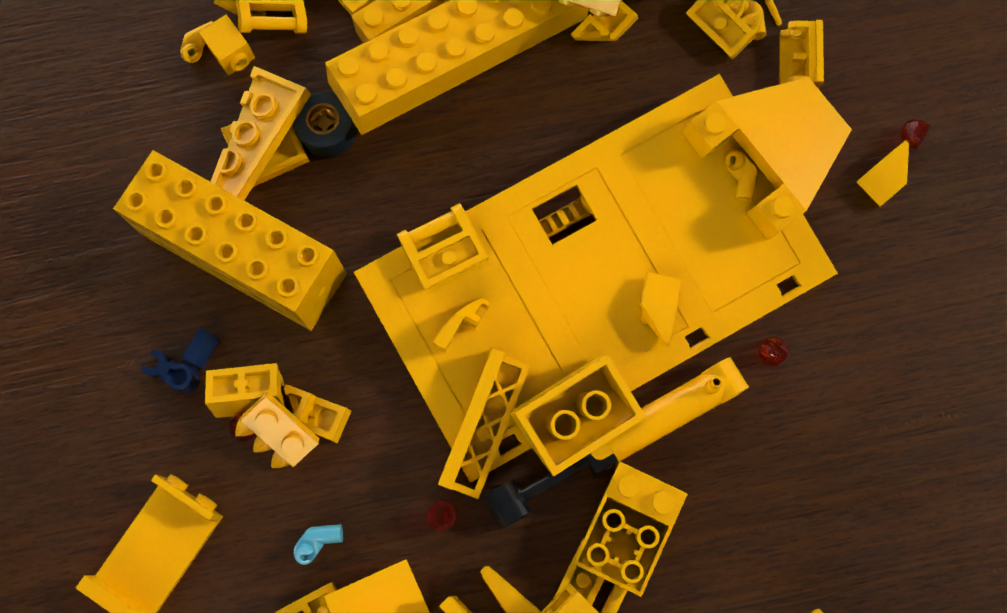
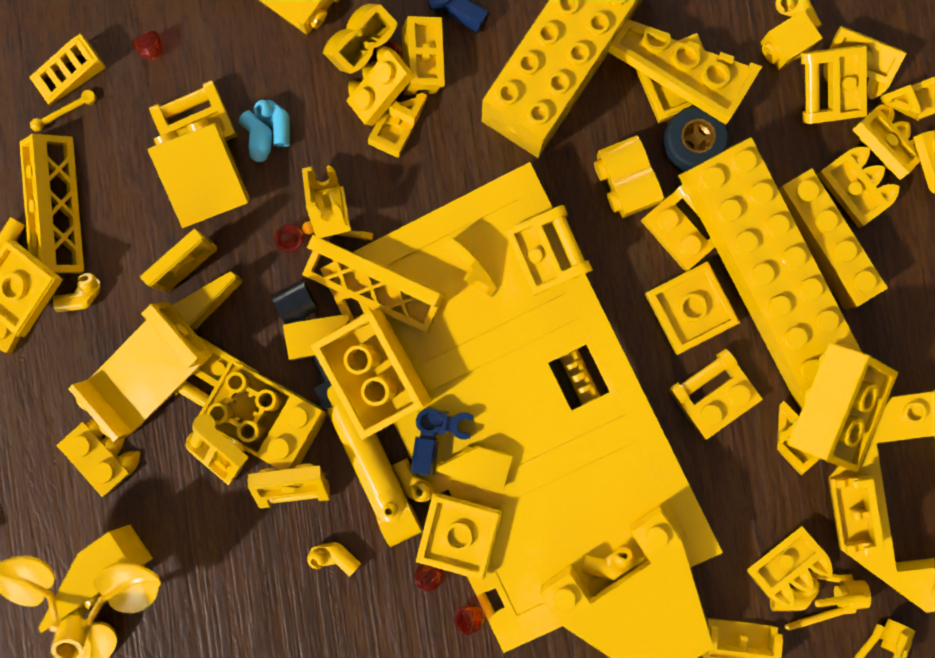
camera: 90 degrees right, 10 degrees up
(222, 450) = (366, 29): none -> yellow brick
(333, 556) = (260, 136): none -> medium azure arm
(364, 183) = (628, 177): none -> yellow brick
(404, 475) = (325, 204): none -> yellow hinge
(415, 138) = (677, 232): none -> yellow plate
(428, 497) = (308, 229): none -> yellow hinge
(488, 119) = (692, 308): none -> yellow plate
(543, 488) = (305, 333): none -> yellow slope
(577, 89) = (722, 403): none -> yellow plate
(643, 358) = (432, 422): none -> dark blue bar
(675, 561) = (223, 456): none -> yellow plate
(684, 370) = (412, 484): none -> yellow arm
(700, 502) = (288, 485): none -> yellow plate
(730, 320) = (459, 536): none -> yellow plate
(762, 448) = (332, 554): none -> yellow arm
(810, 307) = (469, 619): none -> clear red hinge

